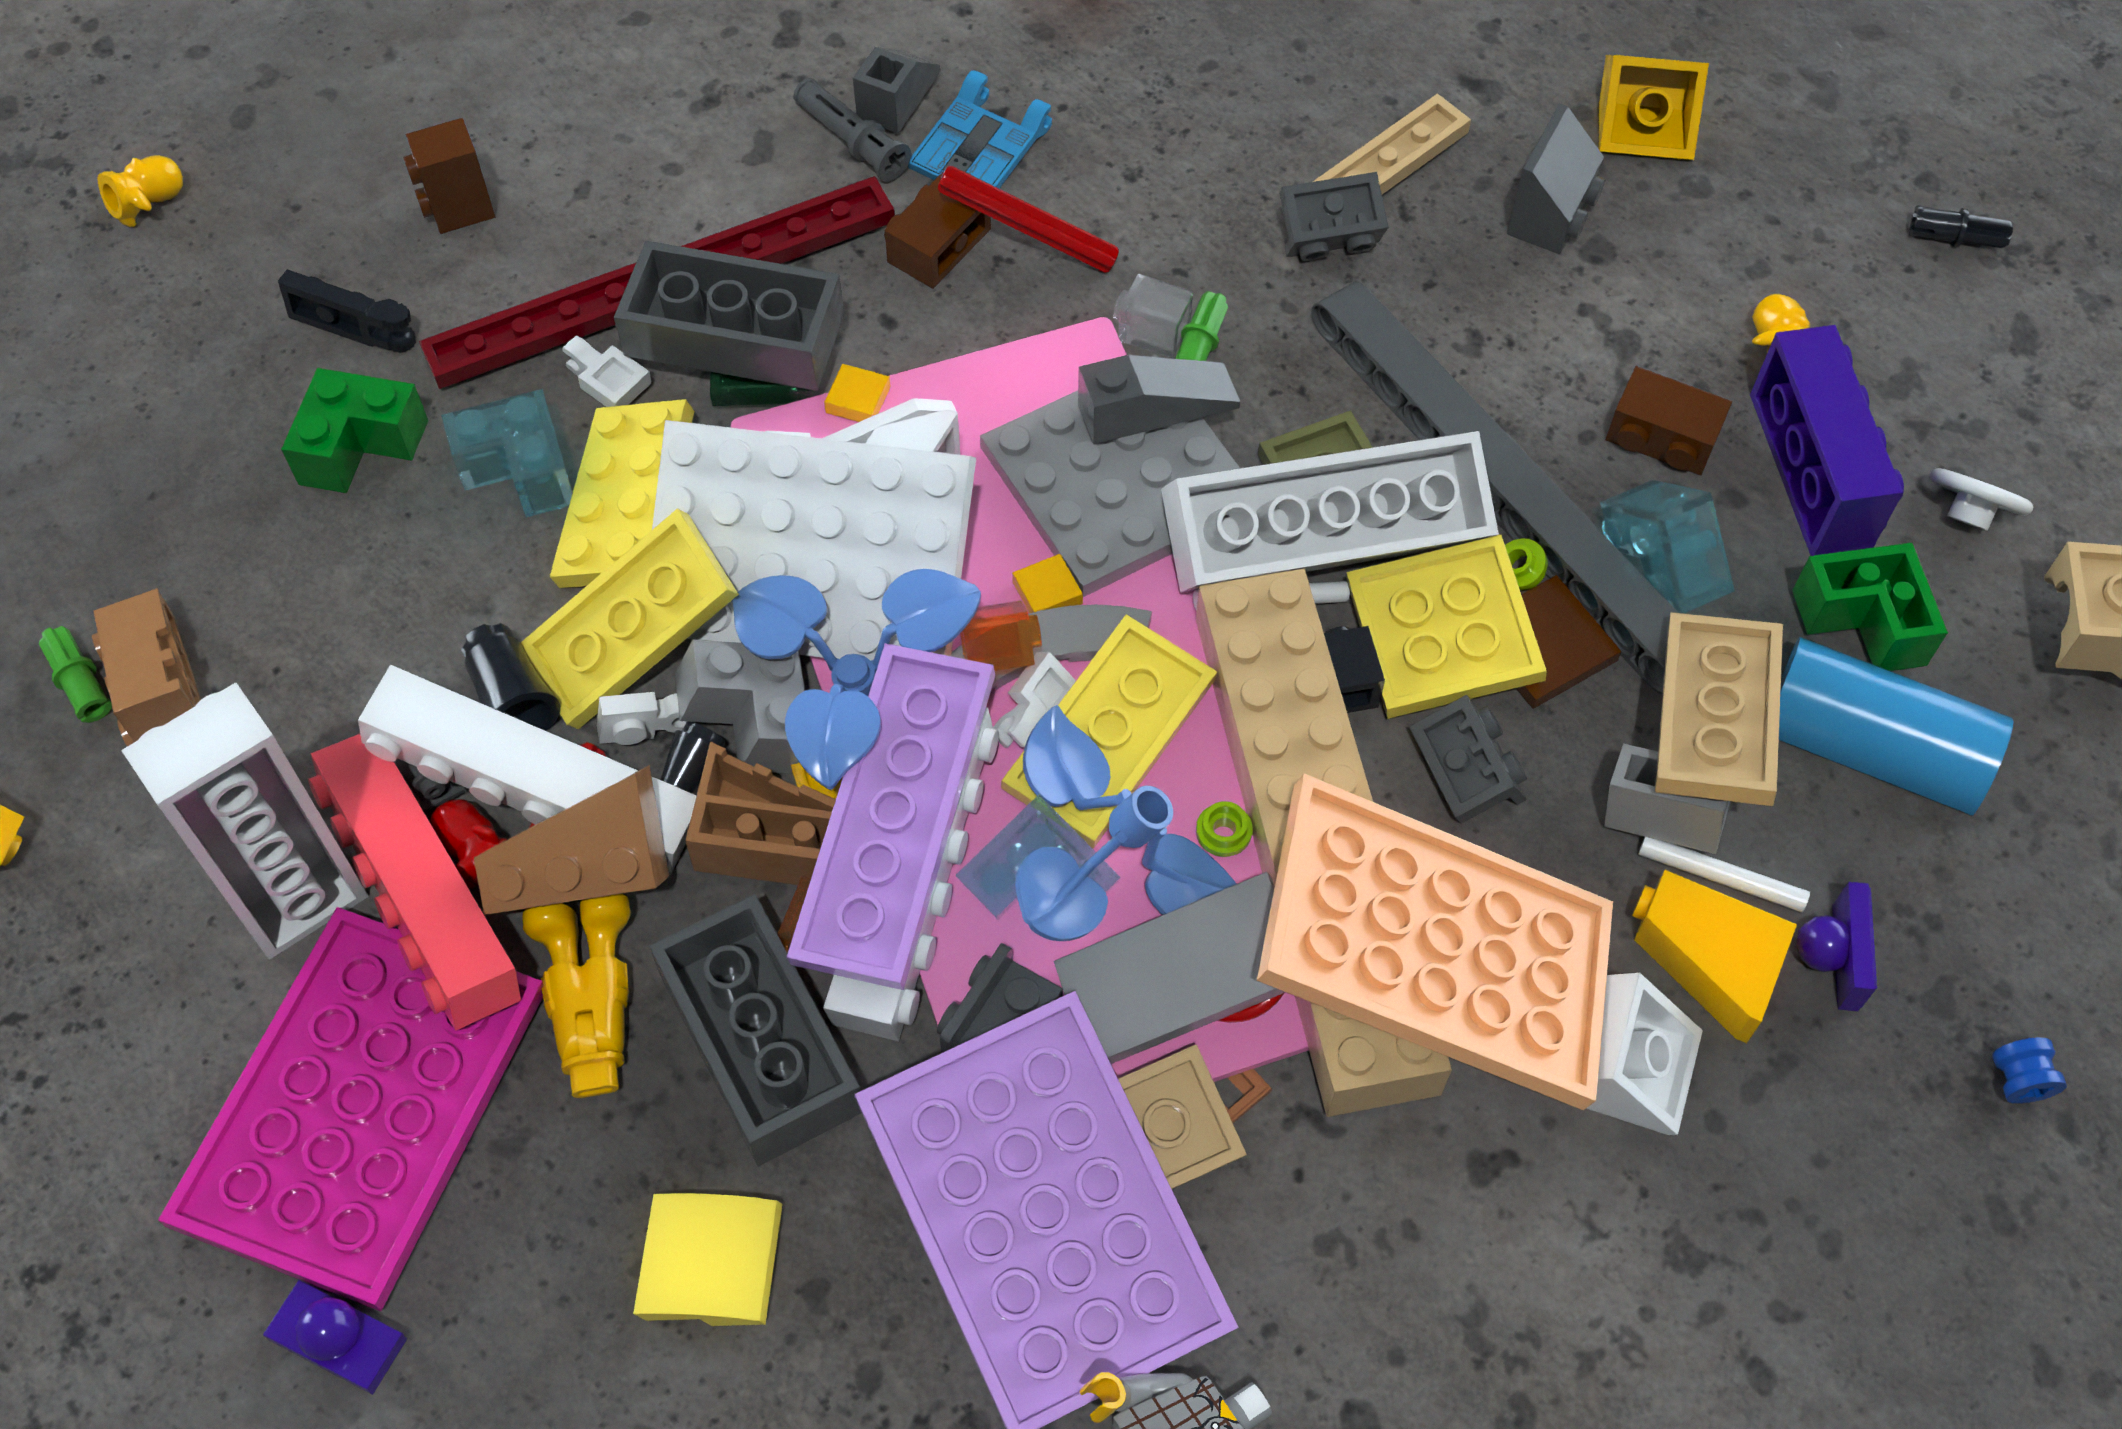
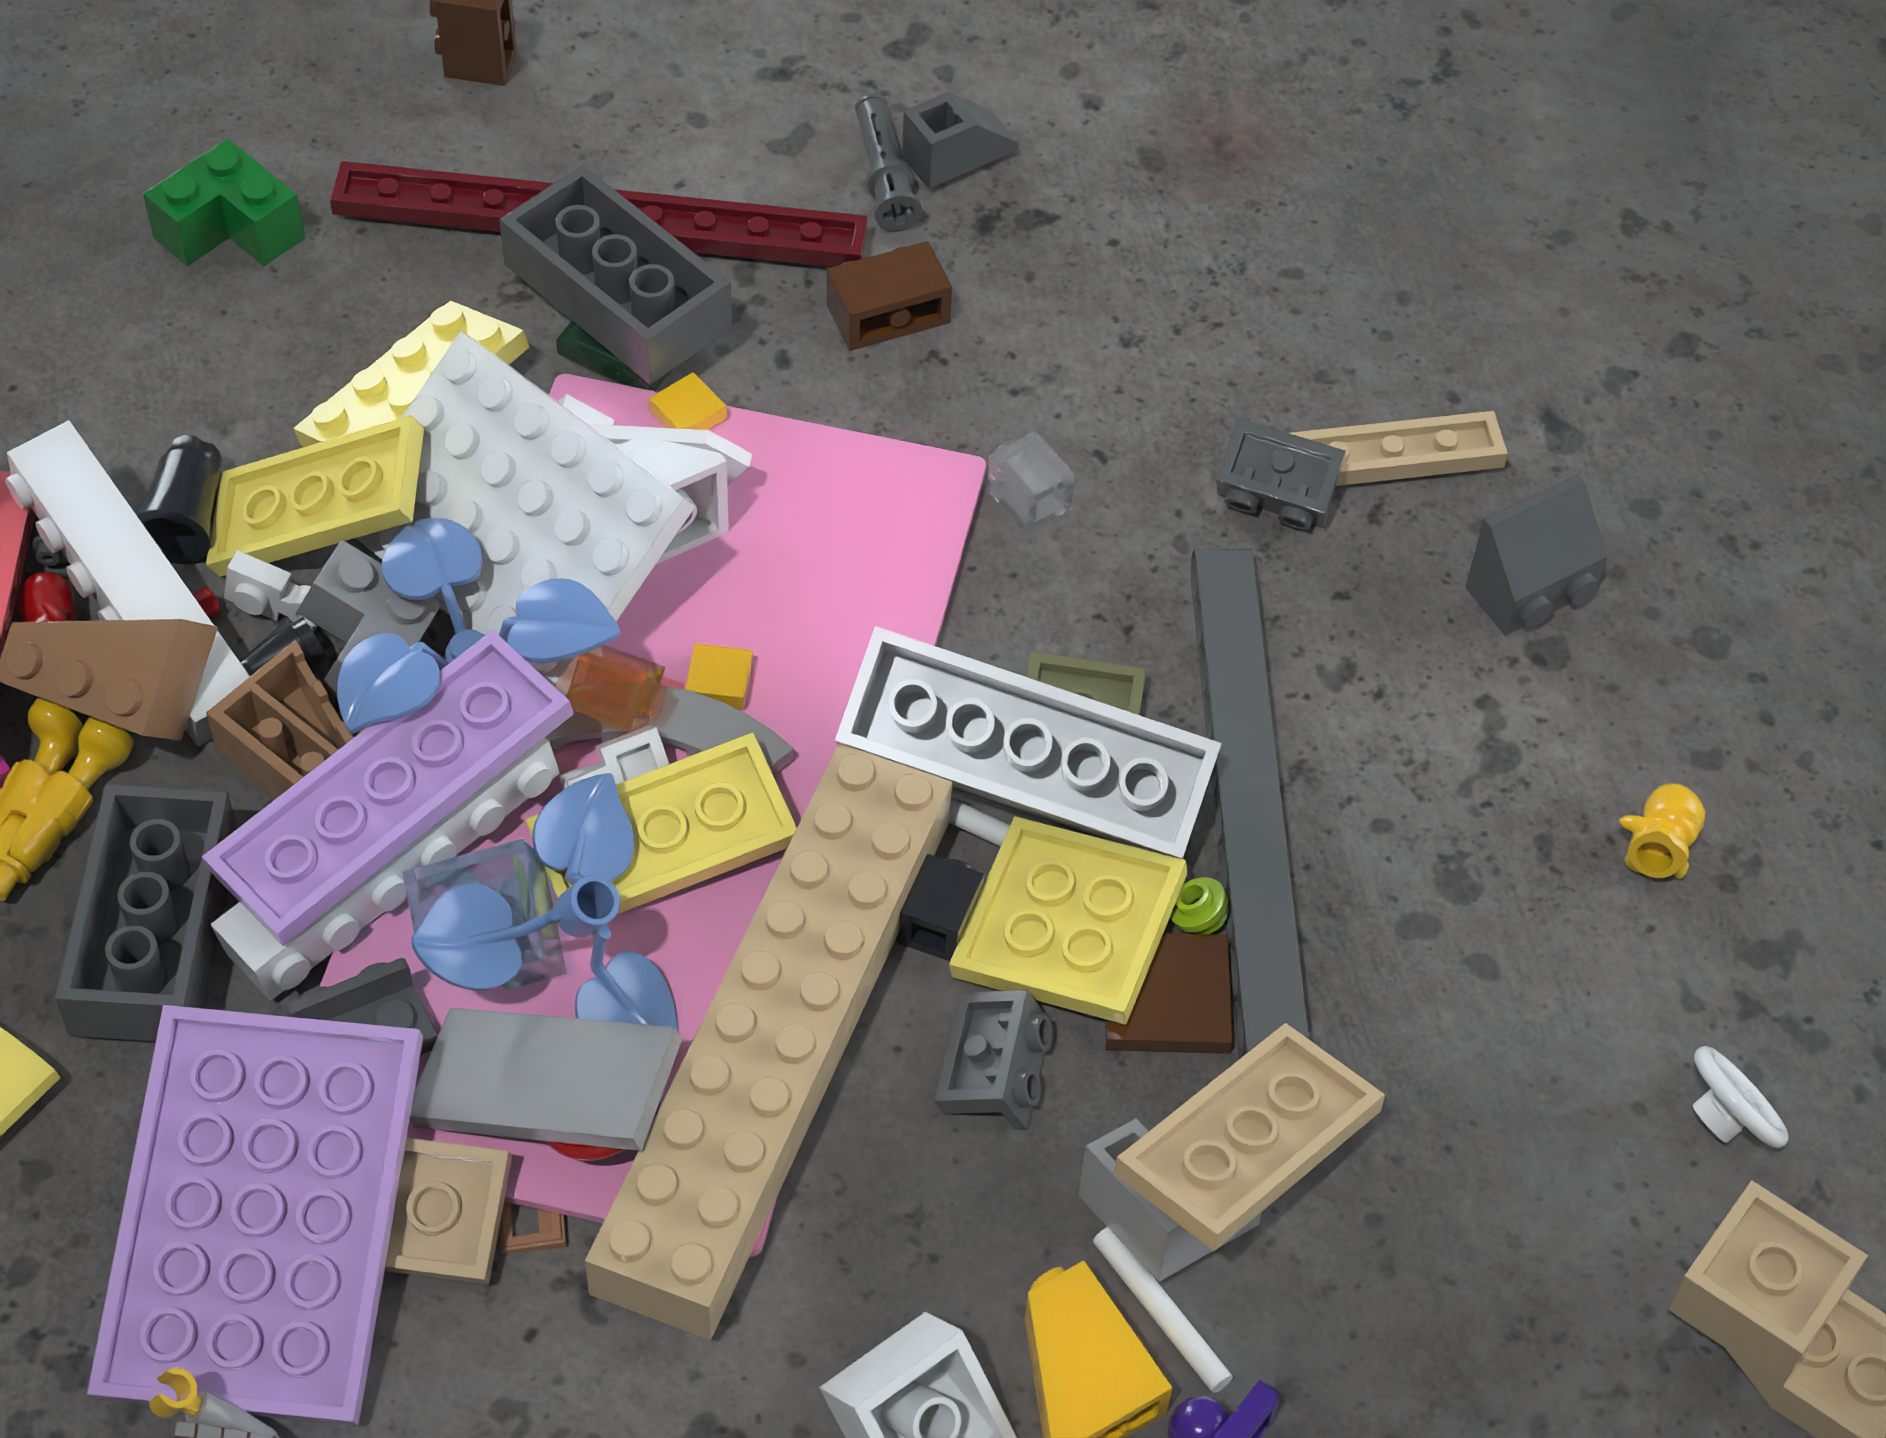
camera: 30 degrees right, 5 degrees down
(347, 312) = (302, 106): black hinge -> none
(508, 442) = (349, 295): clear light blue brick -> none
(606, 376) = (483, 277): white plate -> none
(977, 138) = (998, 235): dark azure flag -> none
(1028, 219) = (973, 327): red axle -> none
(1099, 499) = (846, 570): light grey plate -> none
(1150, 393) = (943, 544): dark grey slope -> none
(1201, 334) = (1059, 525): bright green axle -> none
(1224, 815) = (695, 968): lime plate -> none
(1439, 942) = (784, 1185): light nougat plate -> none
(1651, 106) = (1715, 534): yellow slope -> none
(1668, 420) = (1467, 851): reddish brown brick -> none
(1675, 538) = (1358, 967): clear light blue brick -> none
(1825, 441) = (1606, 956): dark purple brick -> none
(1881, 595) = (1531, 1126): green brick -> none
(1891, 726) = (1446, 1265): dark azure brick -> none

